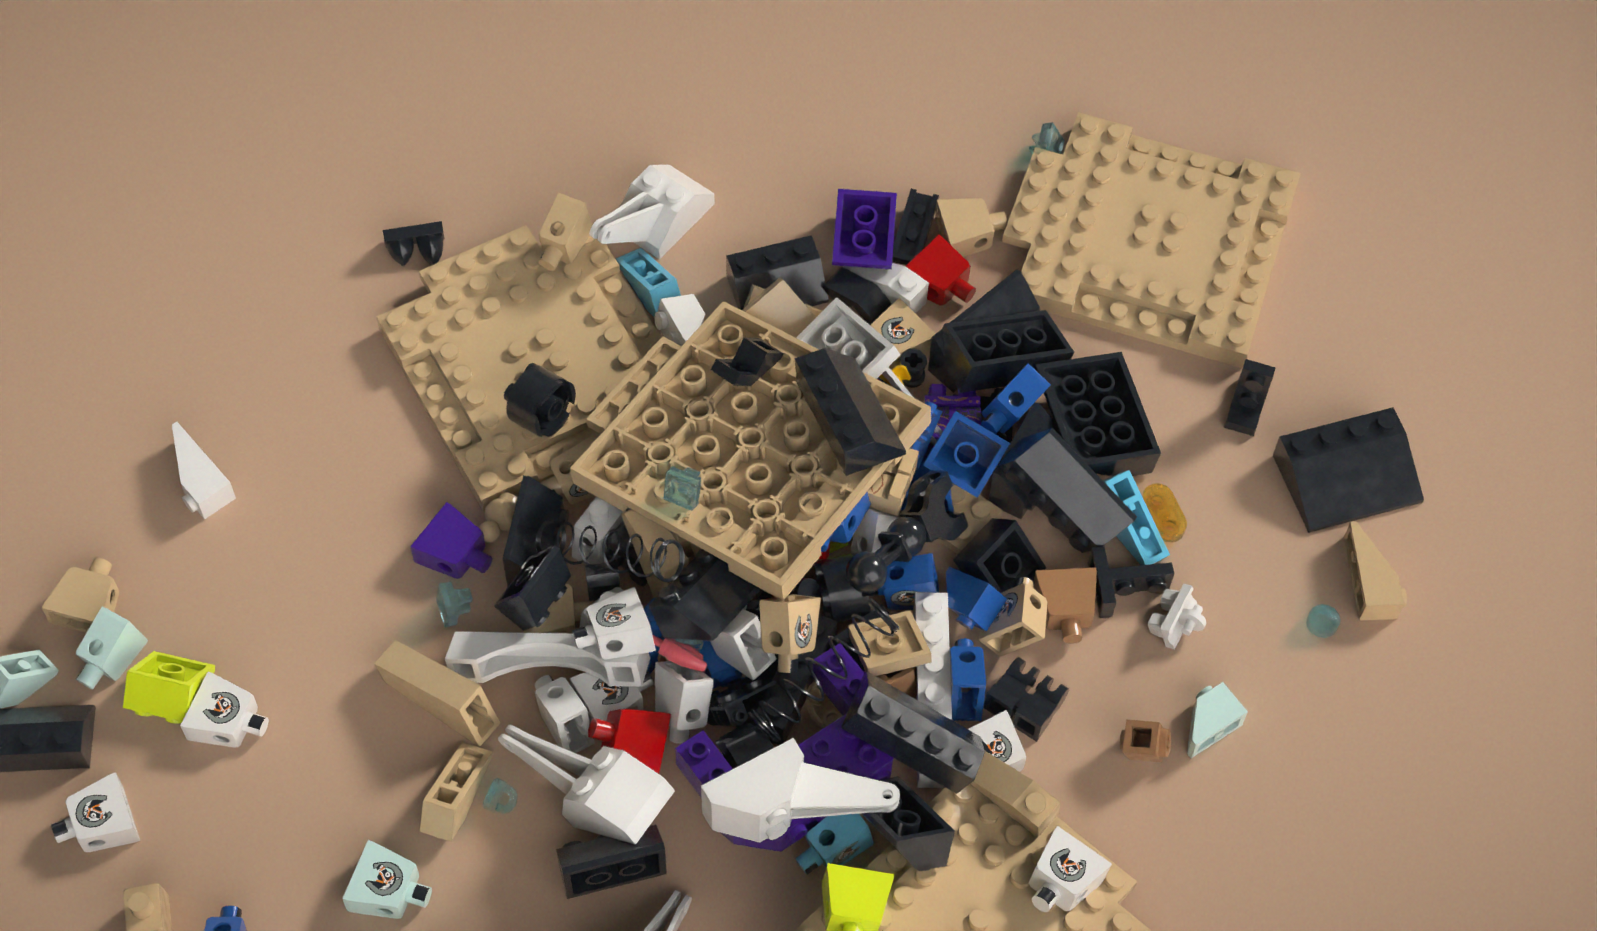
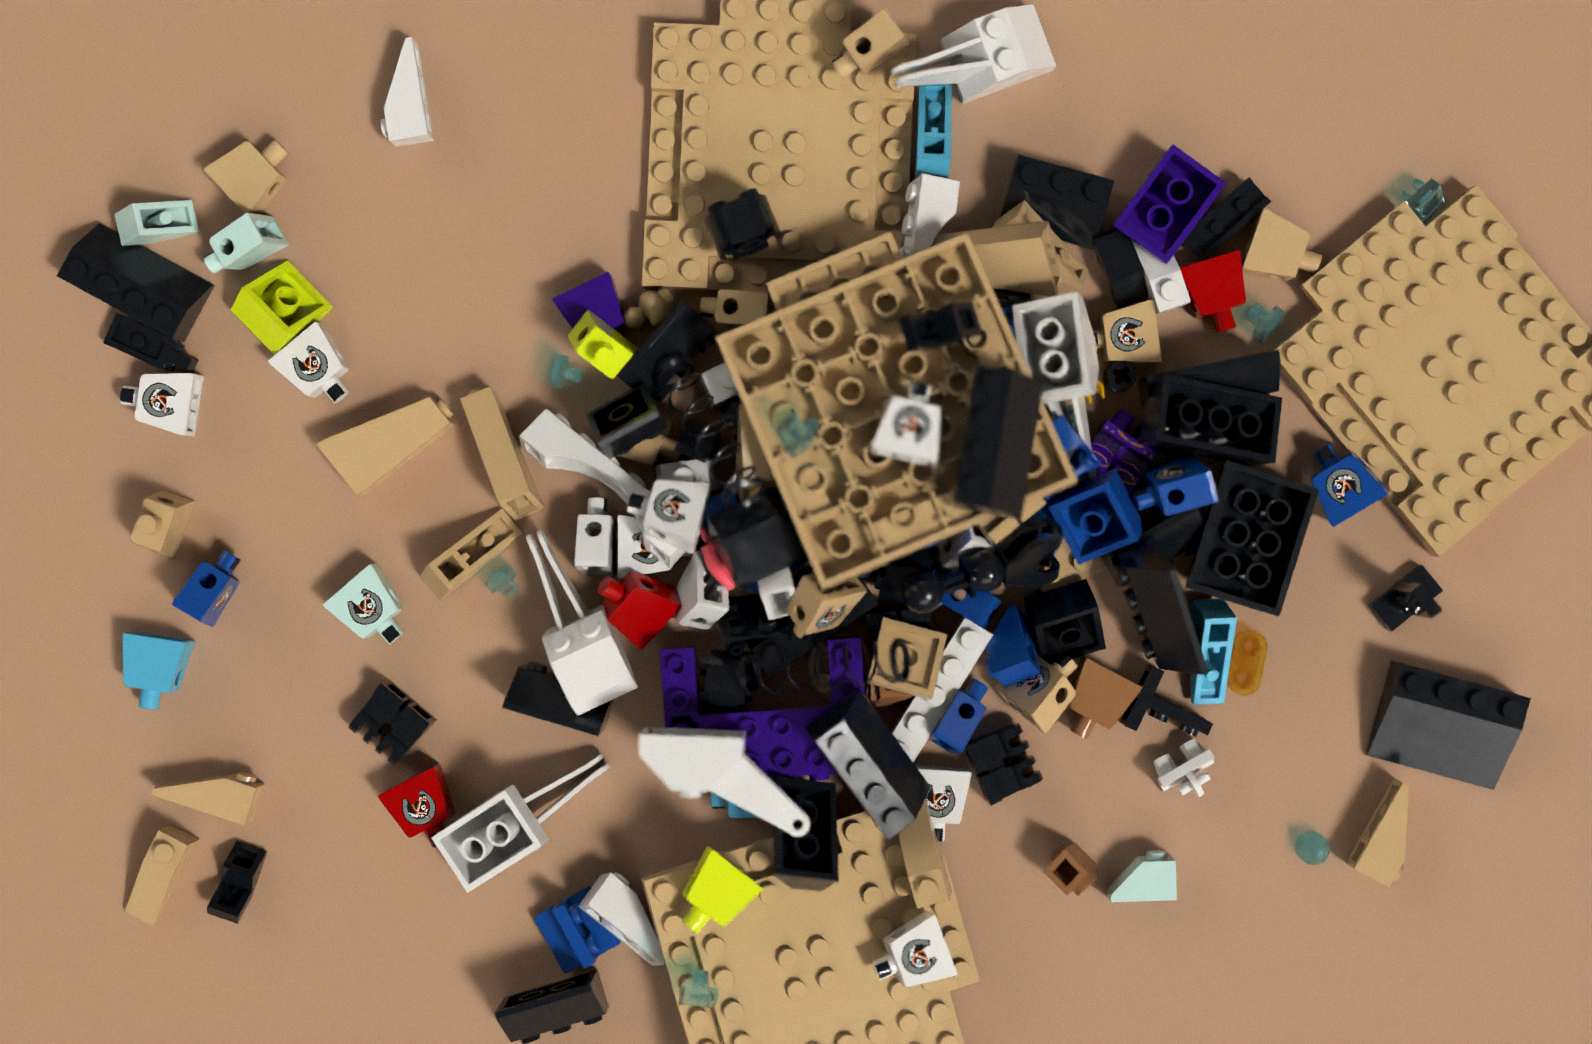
camera: 30 degrees right, 30 degrees up
(54, 780) = (147, 345): none -> black hinge
(325, 742) = (383, 445): none -> tan slope
(476, 548) = (601, 345): none -> neon yellow torso
(774, 436) = (910, 428): none -> white torso
(992, 272) = (1265, 321): none -> clear light blue tile
(1142, 345) = (1345, 484): none -> blue torso

